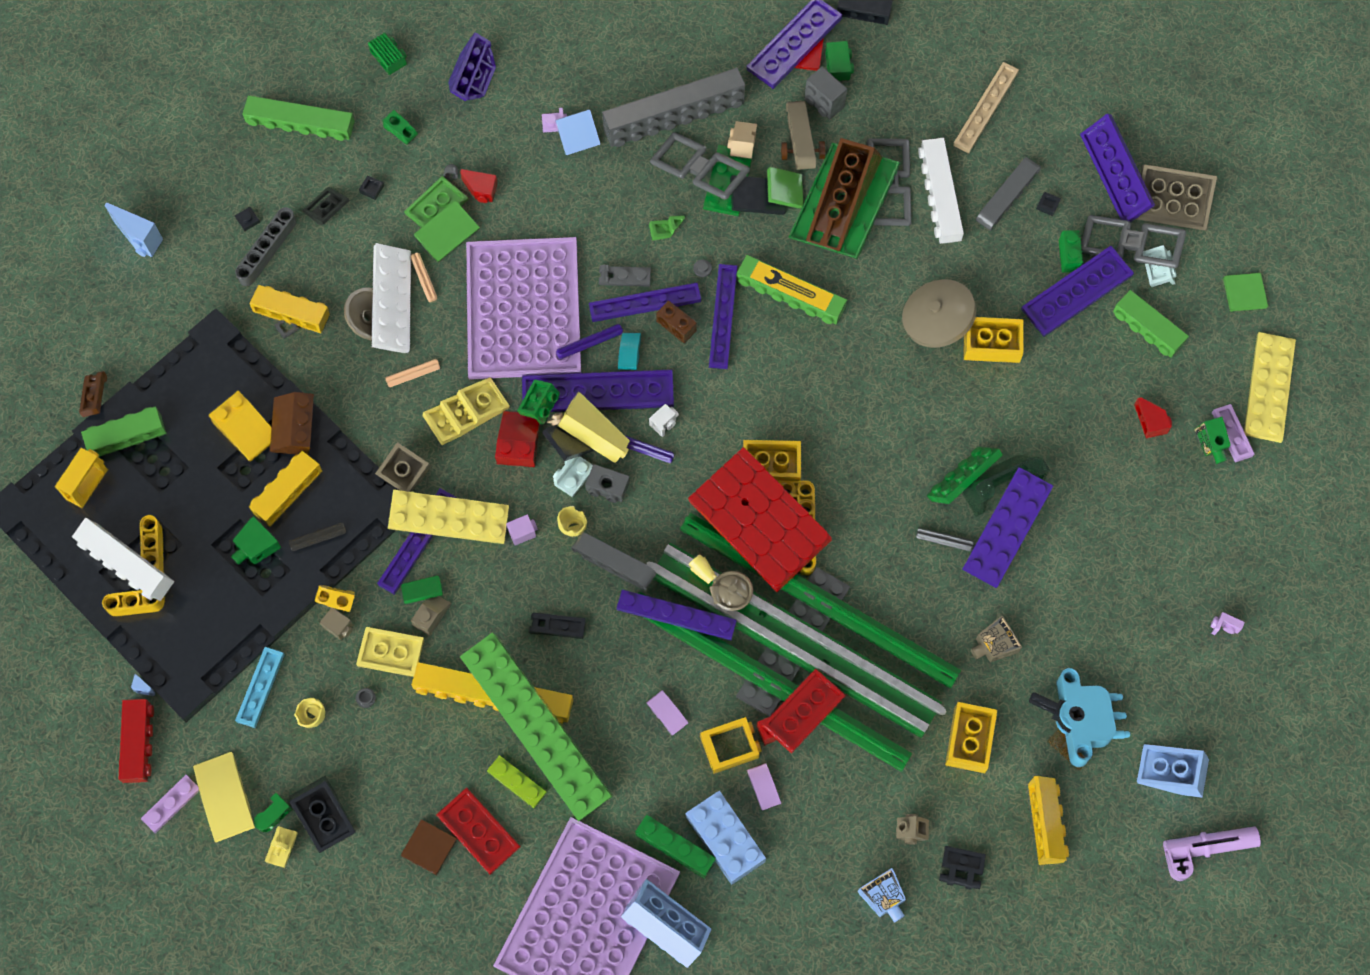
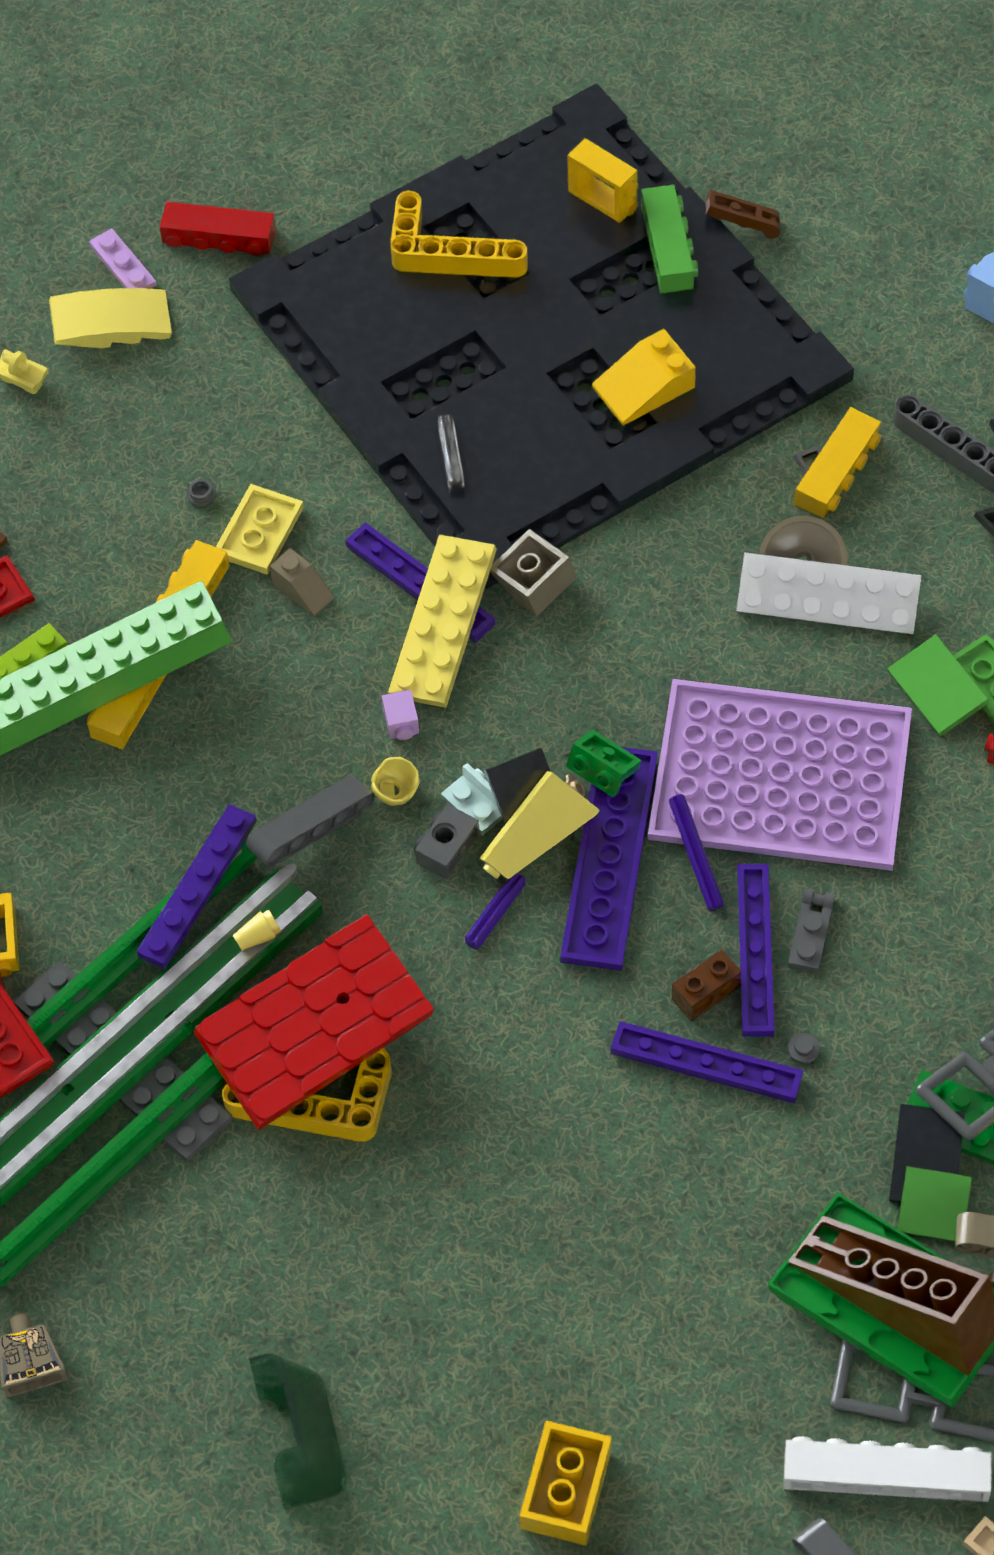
camera: 105 degrees right, 10 degrees down
(122, 559) = (464, 214): white brick -> none
(141, 687) = (292, 239): light blue slope -> none
(254, 543) = (459, 374): green torso -> none
(259, 687) = (252, 372): medium azure plate -> none
(272, 815) = (68, 370): green leg -> none
(285, 488) = (533, 418): yellow brick -> none
(292, 423) = (632, 437): reddish brown slope -> none
(312, 706) = (186, 420): light yellow hair -> none
(321, 814) = (52, 421): black slope -> none
(335, 597) = (352, 466): yellow leg -> none
(337, 624) = (317, 468): dark tan brick -> none
(412, 373) = (698, 612): light nougat axle -> none
(421, 589) = (340, 577): green slope -> none
(423, 277) = (862, 646): light nougat axle -> none
(465, 410) = (617, 672): light yellow slope -> none
(517, 440) = (547, 724): red slope -> none
(558, 625) = (237, 743): black plate -> none
(629, 351) = (664, 907): teal slope -> none
(663, 419) = (536, 938): white brick -> none
(665, 228) = (891, 1005): bright green slope -> none
(667, 712) = (64, 861): lavender slope -> none
(732, 590) = (208, 962): dark tan piece -> none
(779, 458) = (421, 1079): yellow brick -> none
(791, 289) = (732, 1175): brick -> none
(939, 313) = (634, 1400): dark tan dish -> none
(944, 539) = (227, 1324): axle -> none
(964, 475) = (323, 1370): green plate -> none
(1007, 527) = (207, 1409): dark purple plate -> none

